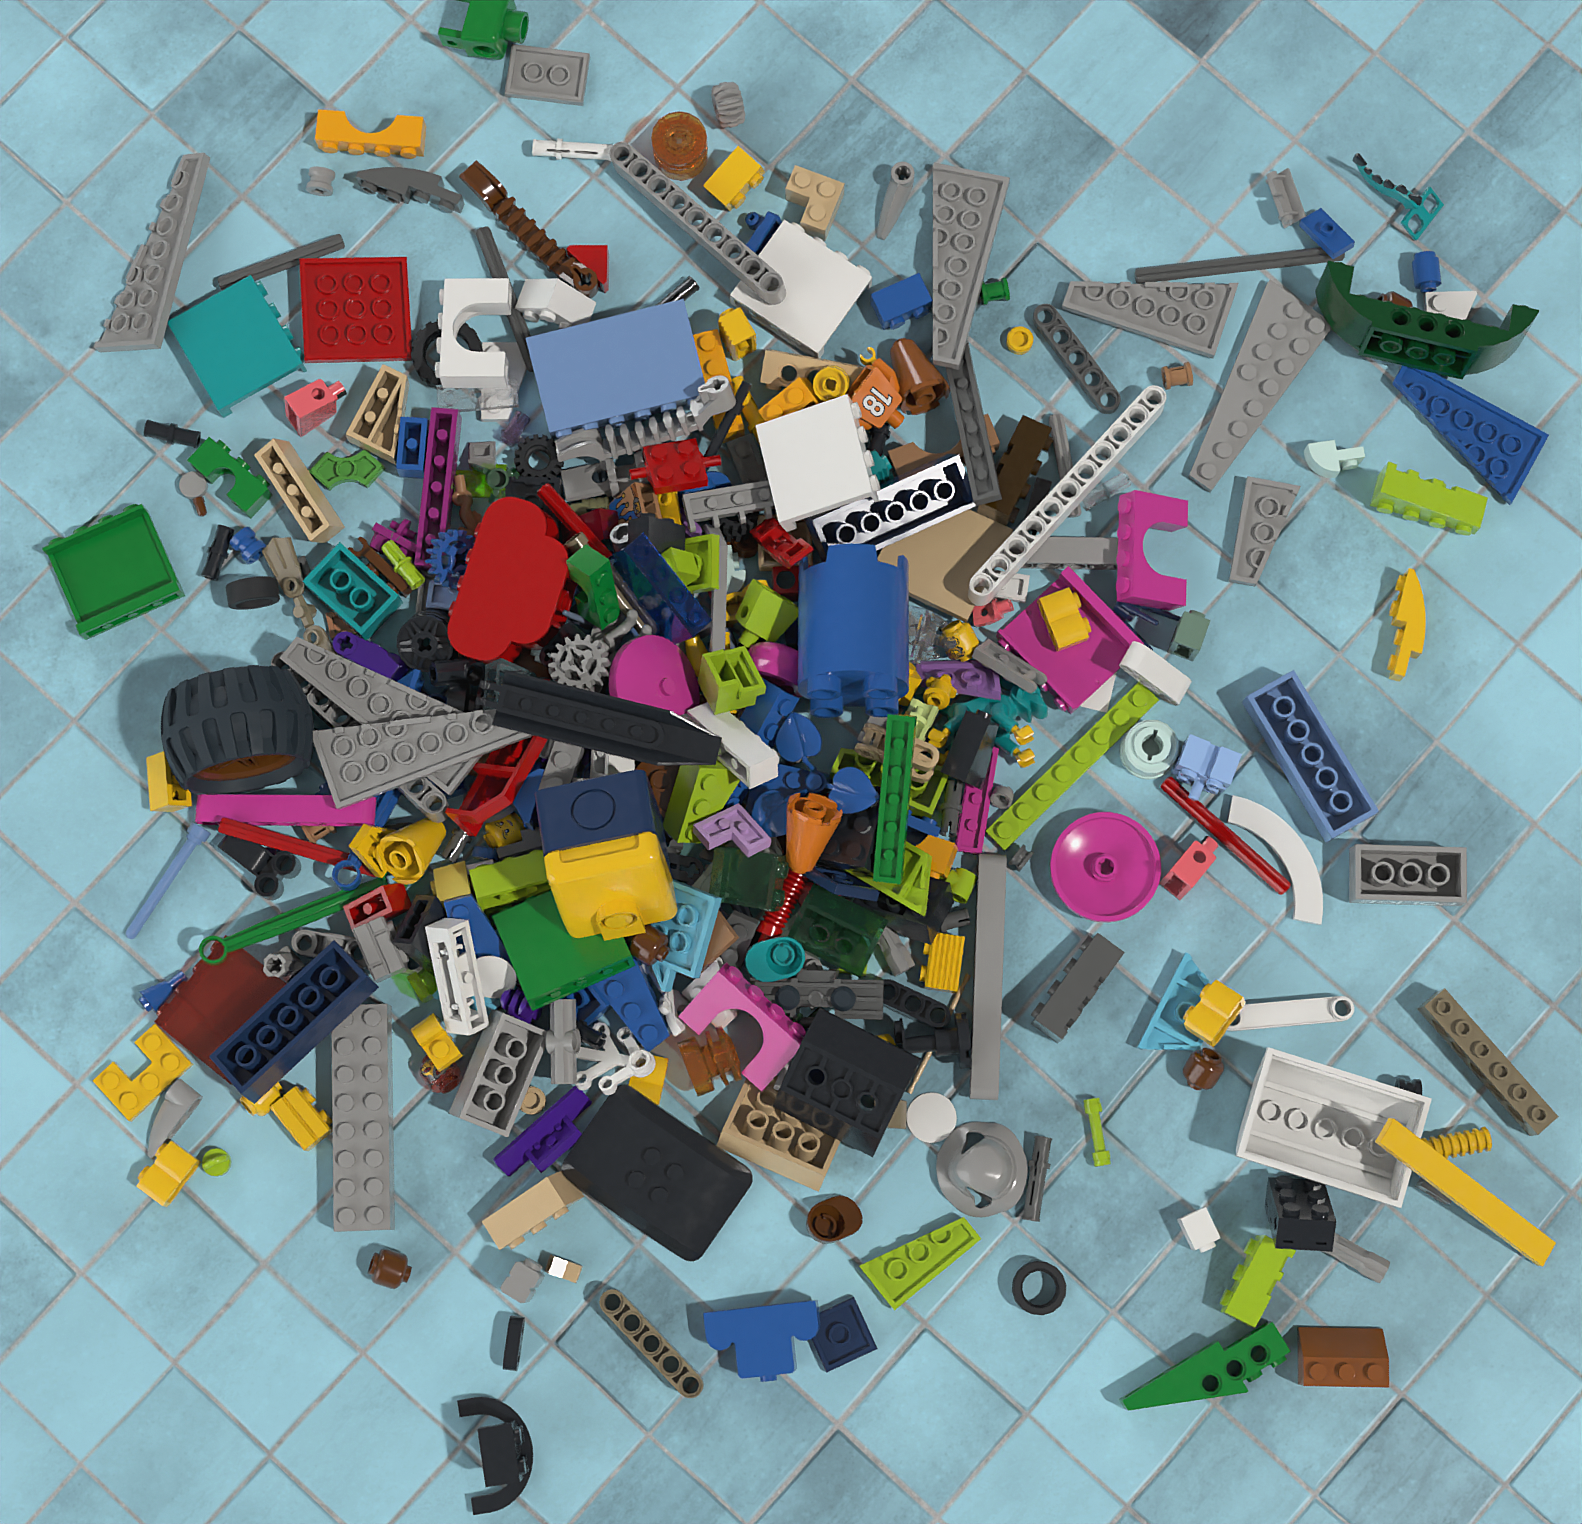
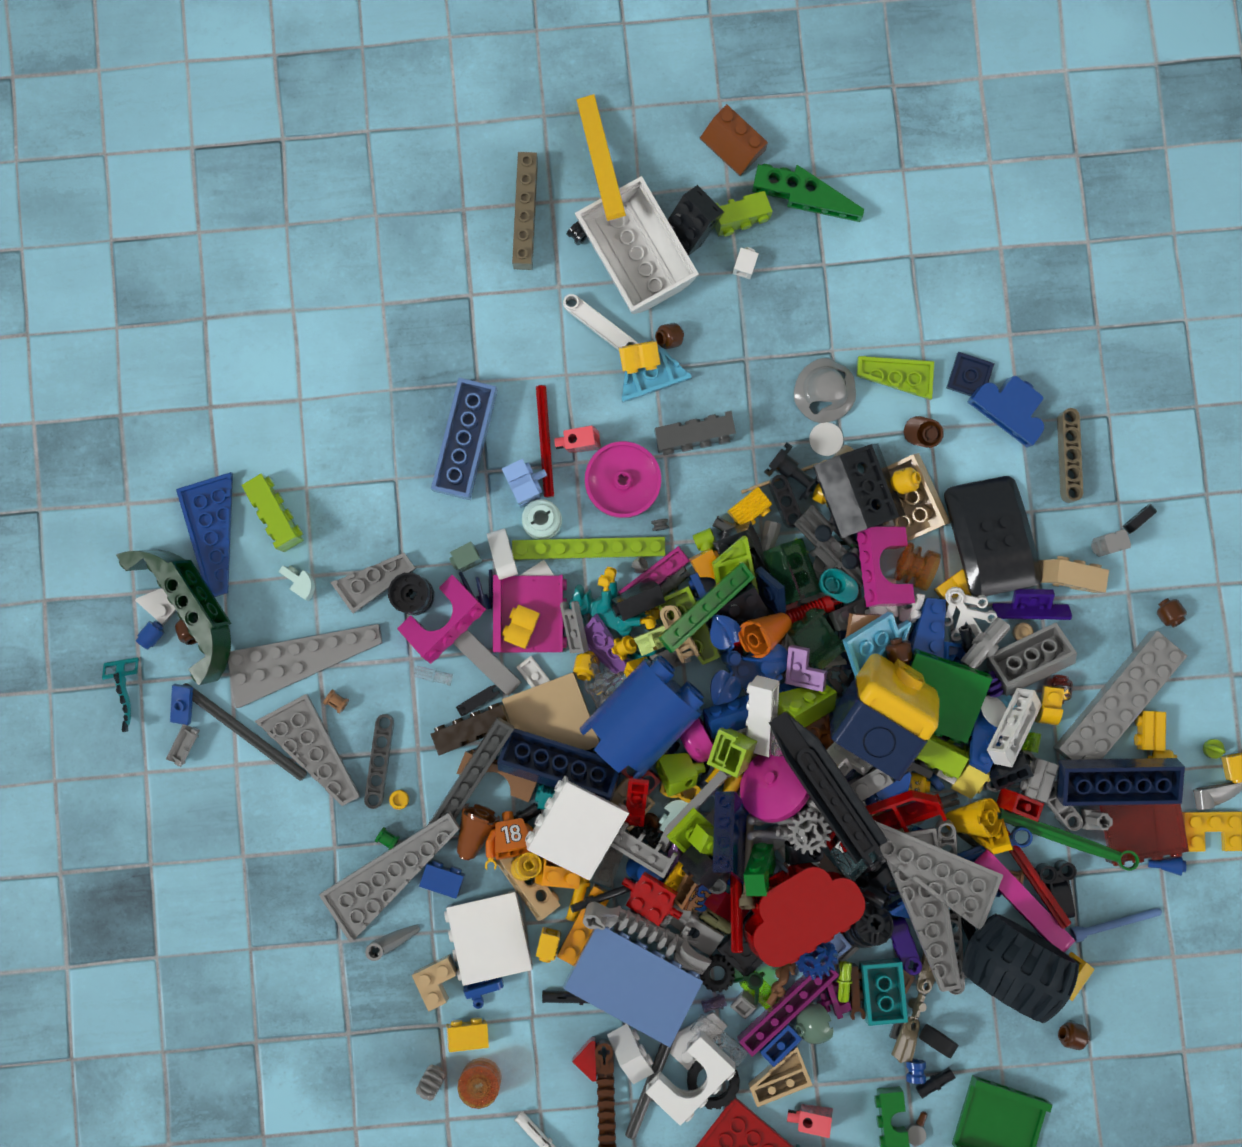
camera: 140 degrees left, 5 degrees up
(114, 725) = (1073, 1036): none -> reddish brown head
(299, 491) = (863, 1076): tan brick -> none
(335, 470) = (831, 1070): bright green tile -> none
(397, 493) = (813, 1024): none -> sand green cylinder
(504, 1452) = (1195, 467): black piece -> none
(563, 1268) = (1081, 532): tan piece -> none
(703, 232) = (511, 1037): light grey beam -> none
(807, 1138) = (905, 480): none -> yellow head
(988, 977) = (733, 481): light grey beam -> none
(995, 609) = (551, 665): coral piece -> none
(1037, 1177) = (795, 365): dark grey pin -> none
(1060, 1291) = (851, 322): black tyre -> none
(1062, 453) = (441, 708): light grey axle -> none
(1062, 505) = (448, 693): white beam -> none
(1092, 1108) = (742, 368): lime bar -> none
(1218, 537) = (401, 589): none -> black wheel
(1290, 850) = (519, 404): white tile -> none
(1363, 1261) = (678, 174): light grey axle -> none
(1408, 875) = (474, 335): light grey brick -> none
(1409, 615) = (340, 464): yellow slope -> none
(1461, 1143) = (578, 187): yellow piece -> none

